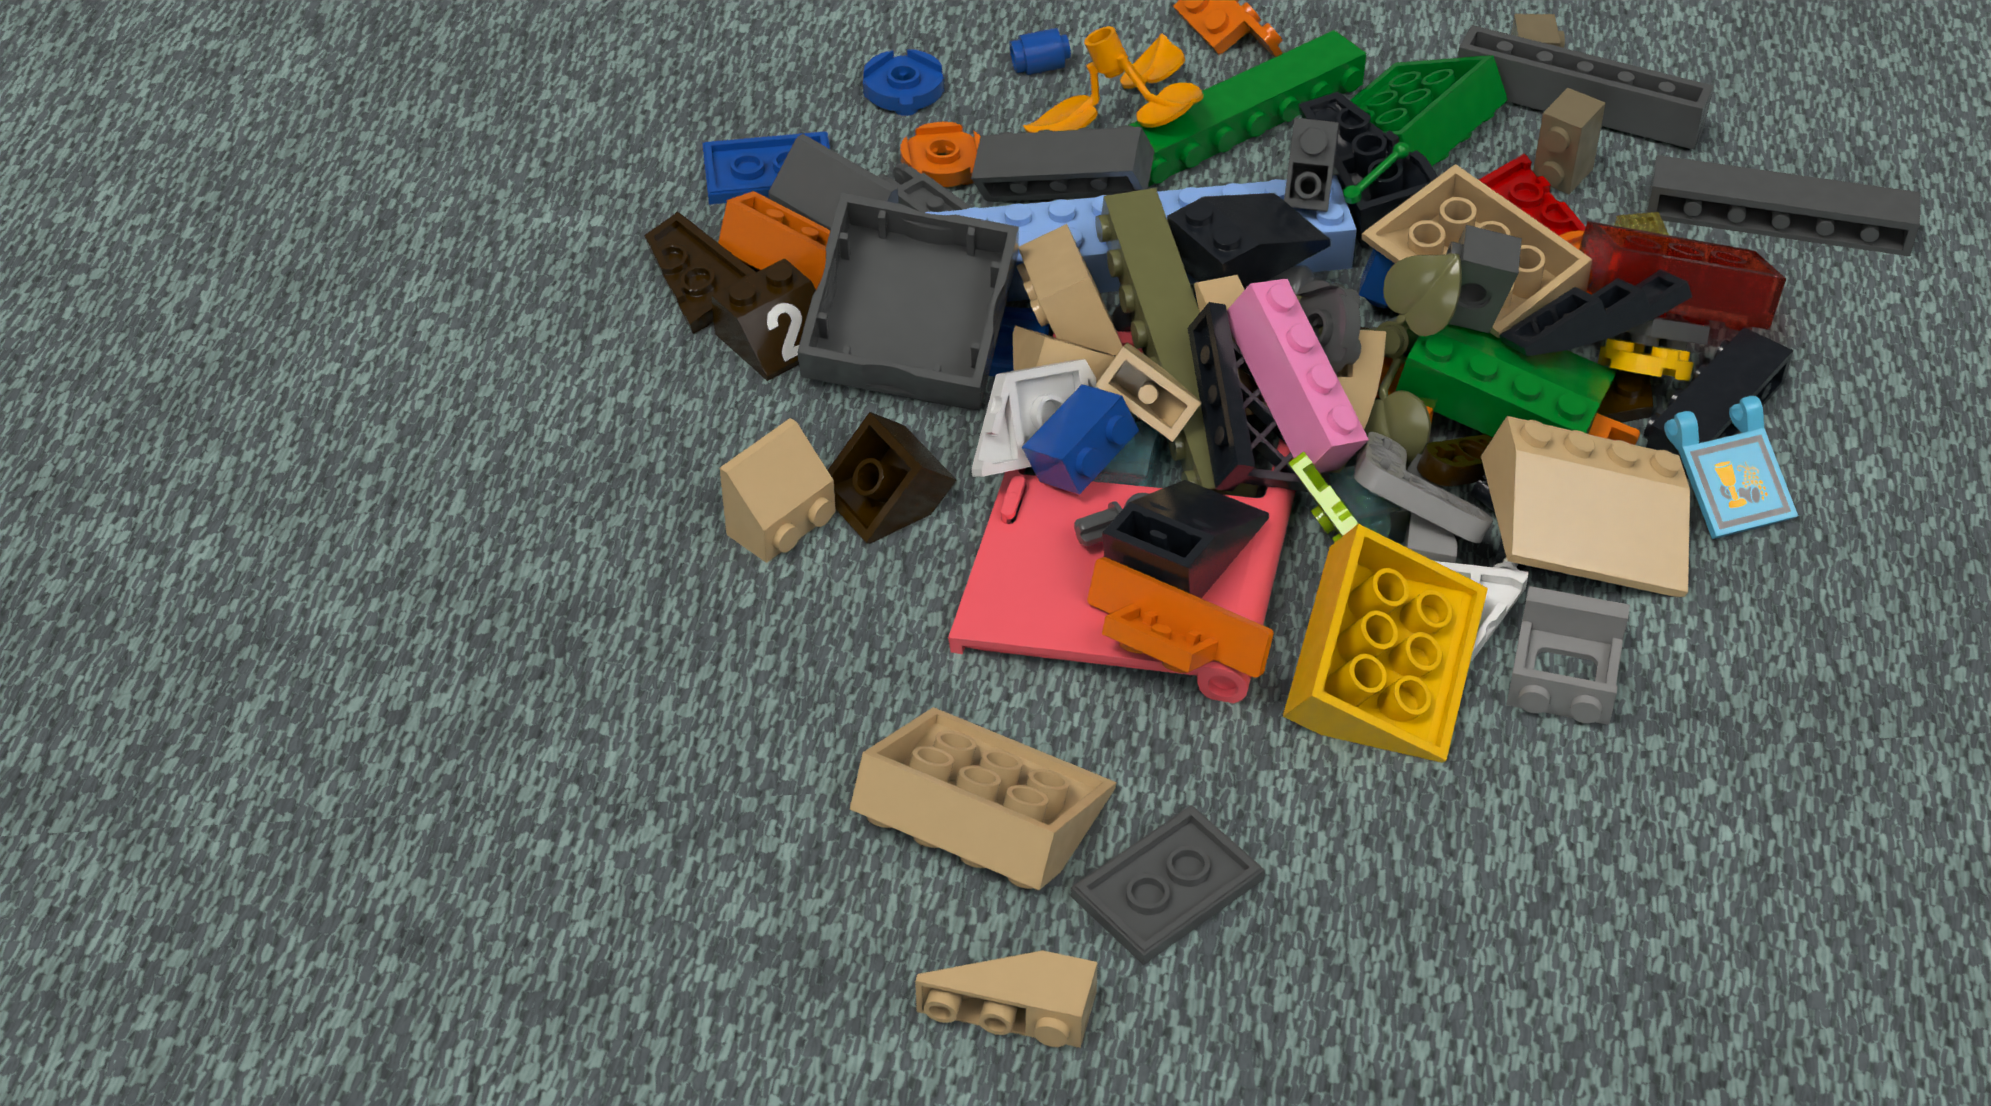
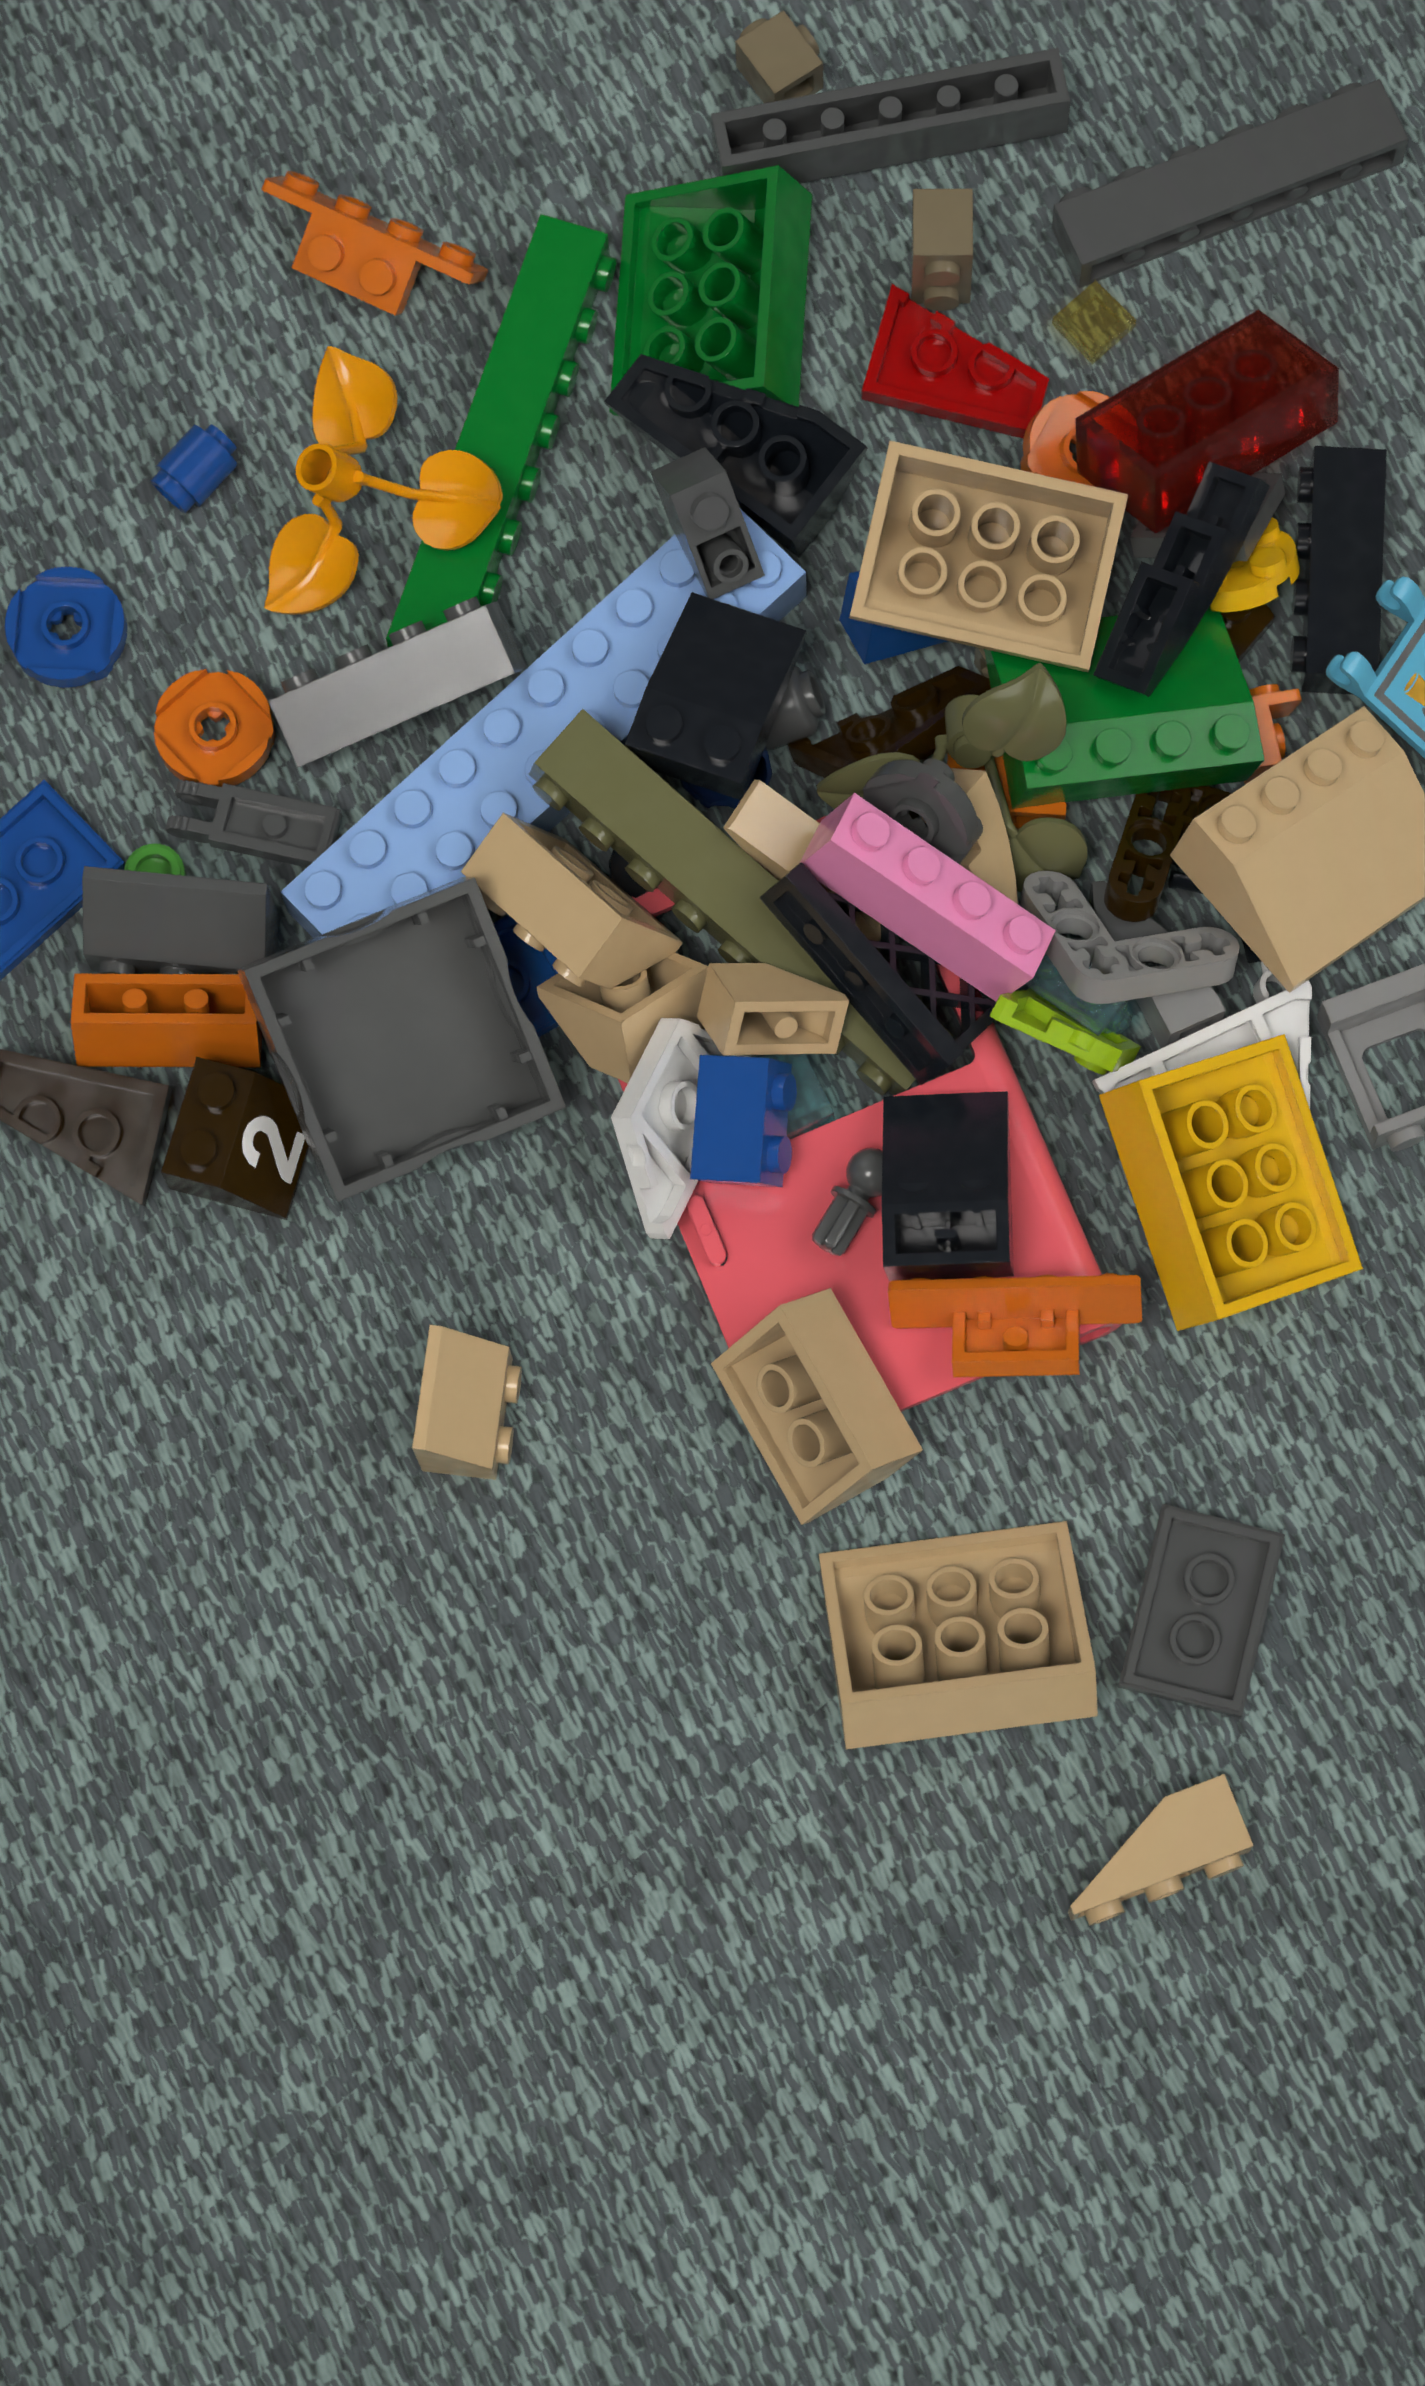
camera: 30 degrees left, 30 degrees up
(886, 479) = (547, 1291): dark brown slope -> none
(1000, 606) = (815, 1405): none -> tan slope
(1352, 193) = (770, 522): green hinge -> none
(1488, 273) = (1060, 635): dark grey brick -> none

